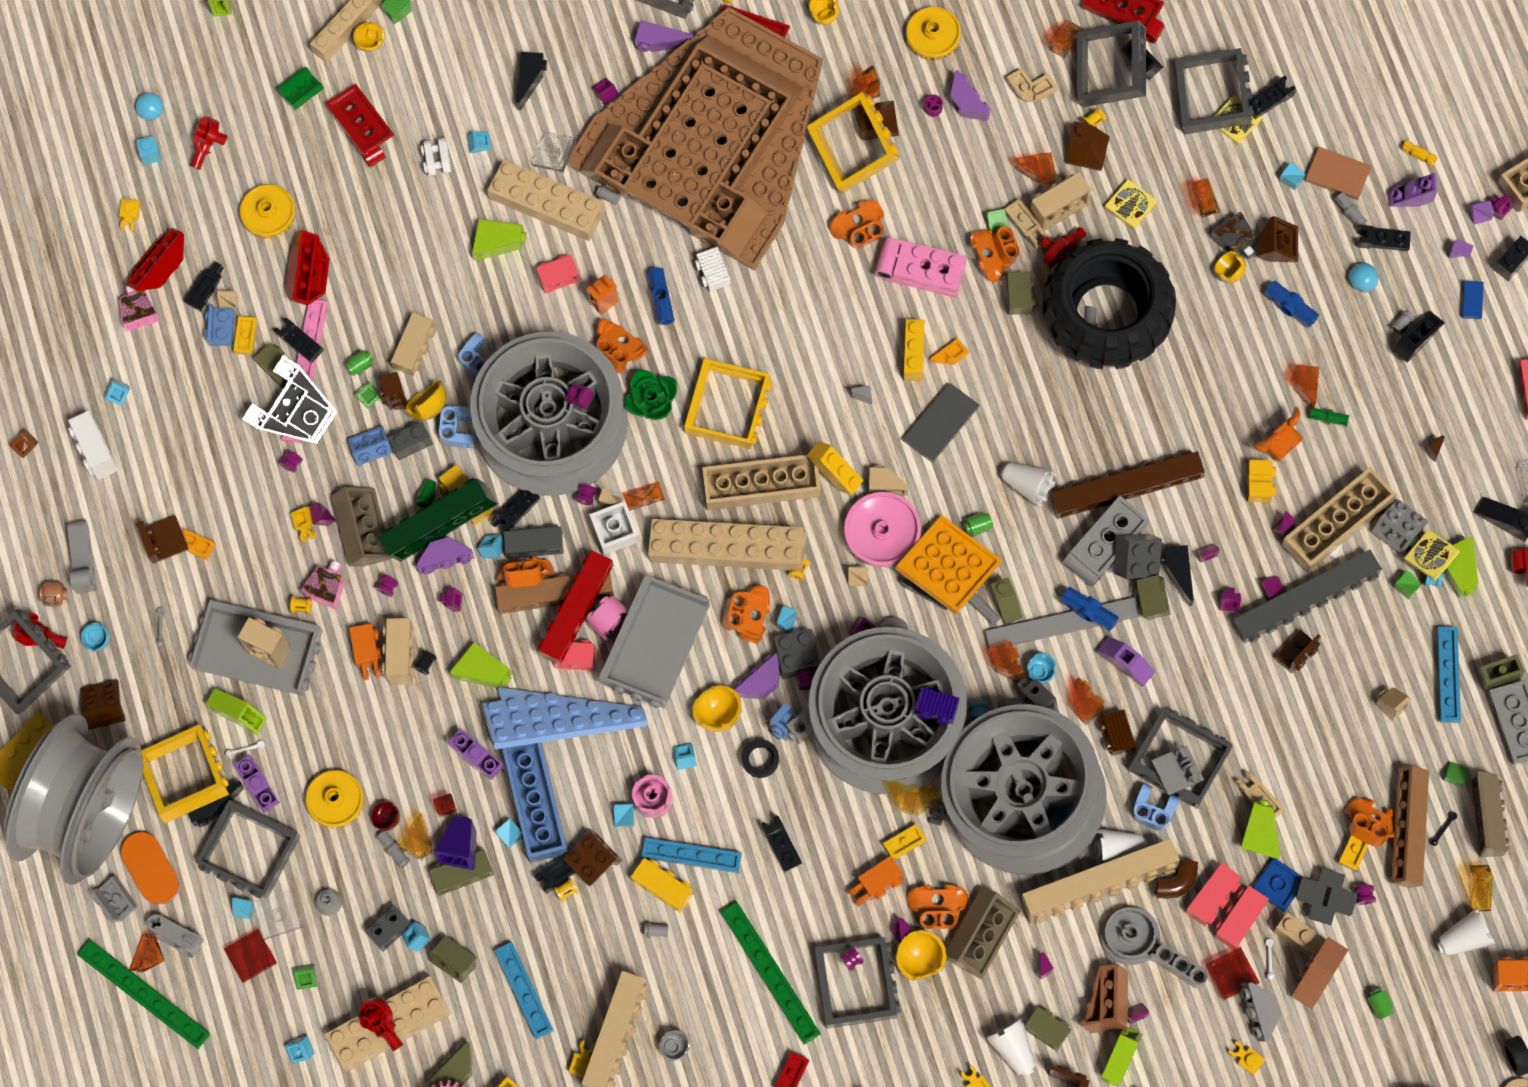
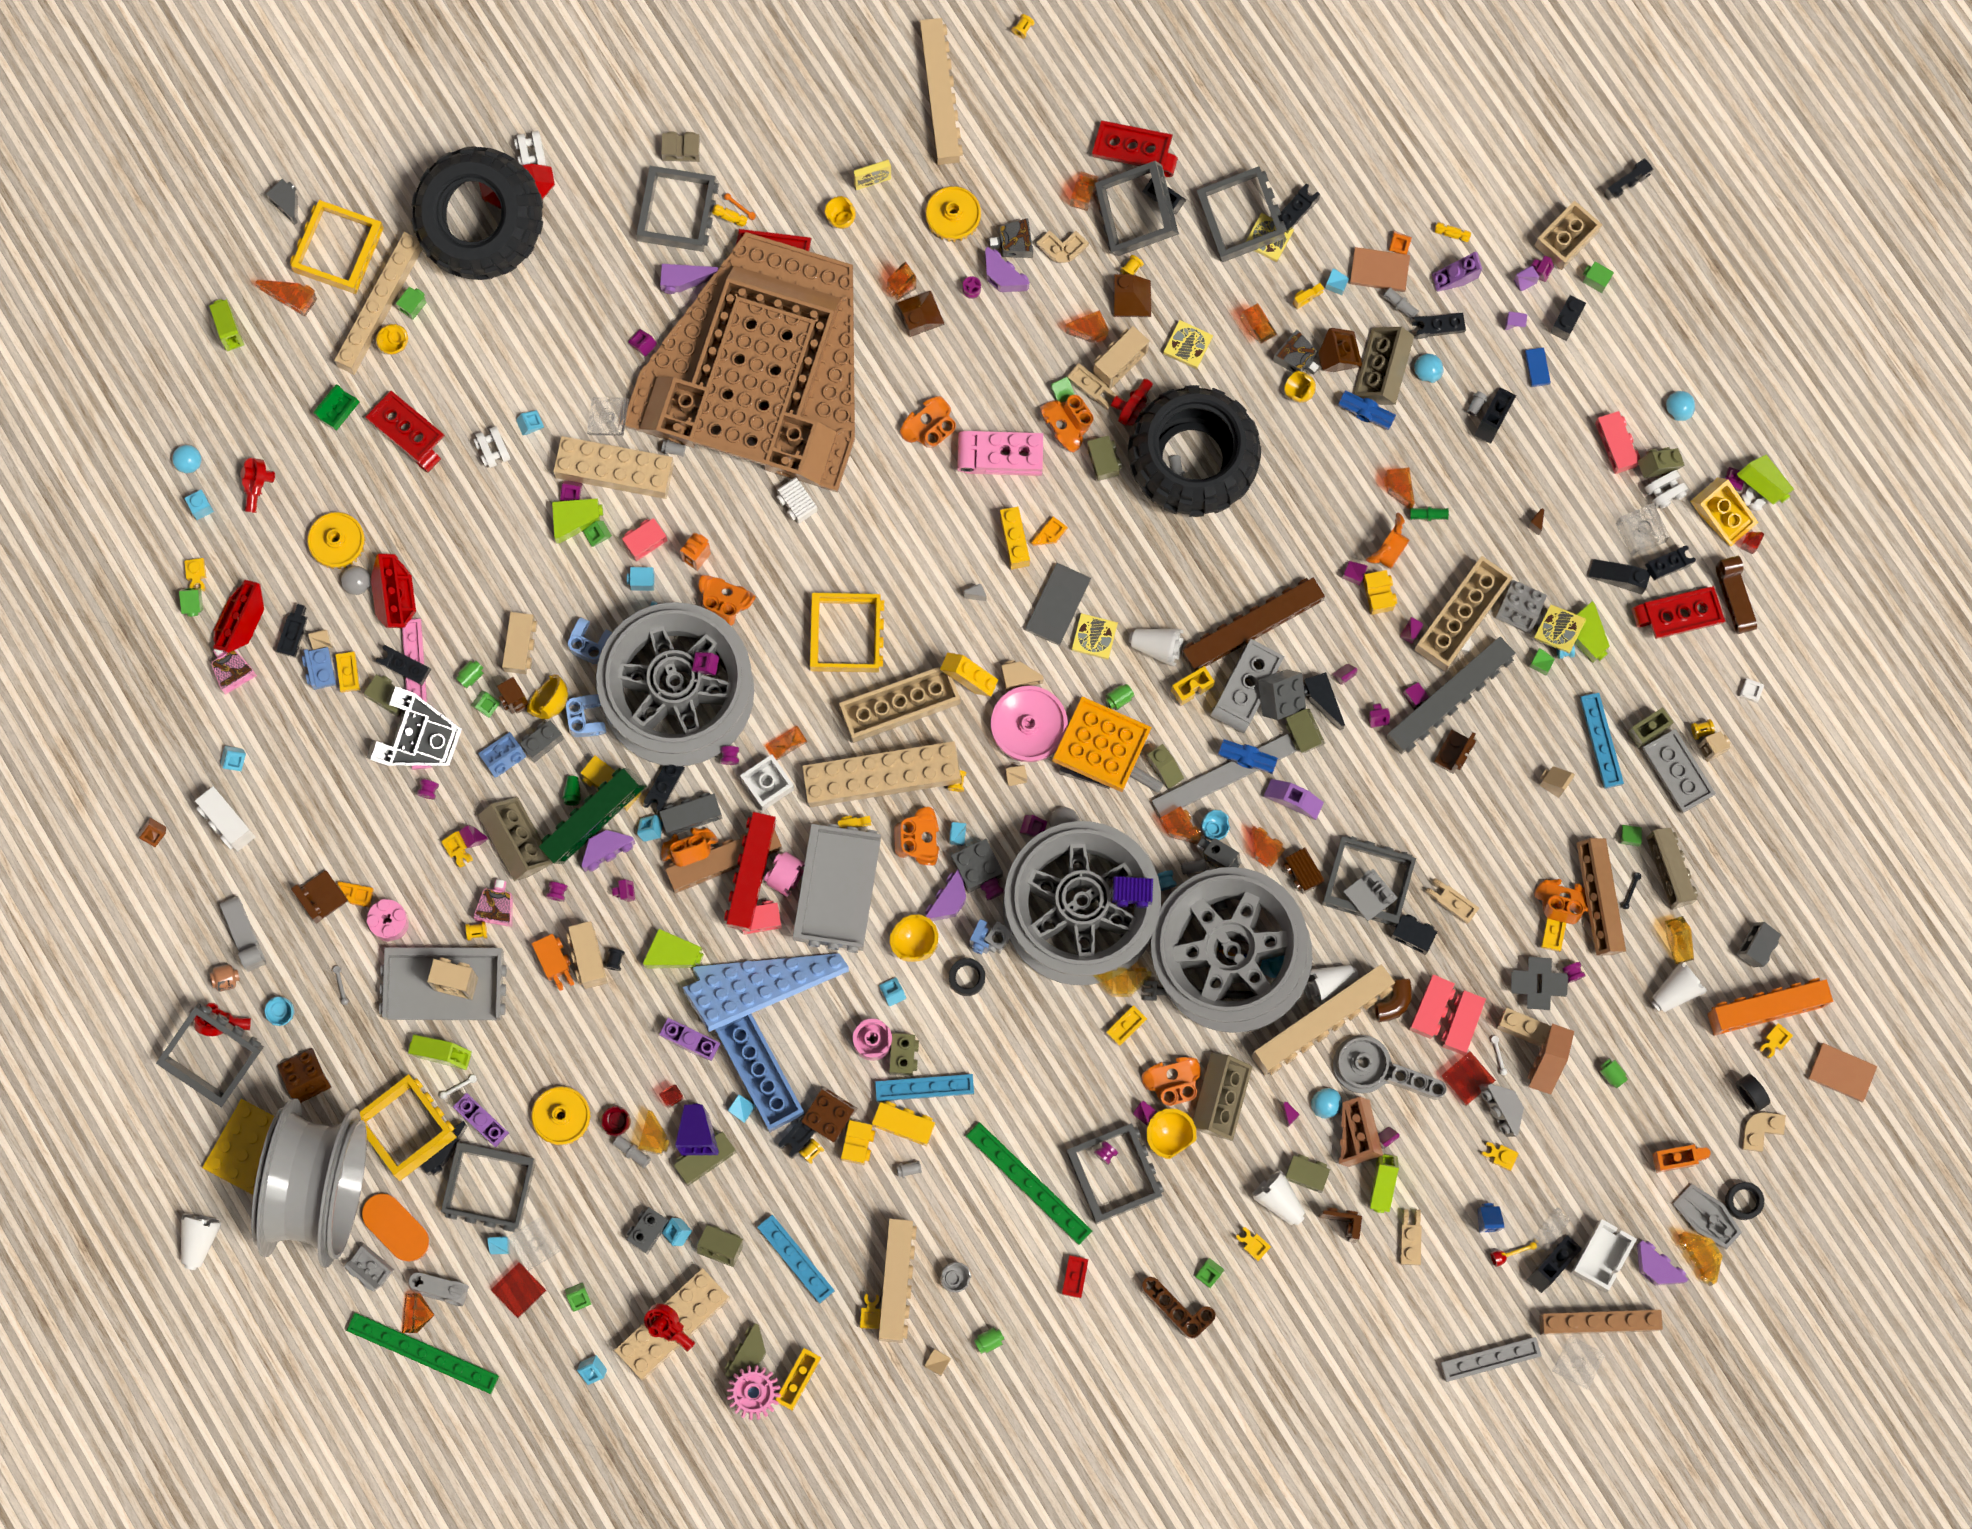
camera: 25 degrees left, 5 degrees up
(117, 237) = (191, 601): none -> bright green brick
(217, 585) = (388, 931): none -> bright pink brick
(276, 252) = (355, 580): none -> light grey hair
(328, 902) = (587, 1216): light grey cone -> none
(500, 213) = (570, 491): none -> magenta slope
(515, 258) = (597, 533): none -> bright green slope
(530, 74) = (564, 342): black slope -> none
(545, 310) = (641, 578): none -> medium azure brick
(607, 500) = (754, 755): tan slope -> none
(612, 892) = (857, 1143): none -> yellow brick
(624, 815) = (849, 1064): medium azure slope -> none
(644, 384) = (760, 631): green brick -> none
(659, 286) = (757, 549): blue piece -> none
(678, 818) = (902, 1054): none -> olive brick
(698, 586) = (848, 821): none -> yellow plate
(781, 845) = (1009, 1056): black plate -> none
(827, 155) = (882, 362): yellow window -> none
(878, 881) = (1110, 1069): orange hinge -> none
(969, 461) = (1094, 636): none -> tile
(985, 69) = (1014, 240): none -> torso
(1054, 526) = (1198, 681): none -> yellow brick
(1084, 964) = (1326, 1103): none -> medium azure hair
(1153, 811) = (1355, 940): light blue piece -> none
(1213, 819) = (1414, 934): none -> black brick
(1240, 457) = (1354, 572): none -> magenta slope
(1259, 183) = (1304, 297): none -> yellow plate
(1261, 830) = (1462, 934): lime slope -> none
(1278, 884) = (1490, 981): blue tile -> none
(1320, 264) = (1384, 364): none -> dark tan slope
(1364, 152) = (1400, 243): none -> orange slope

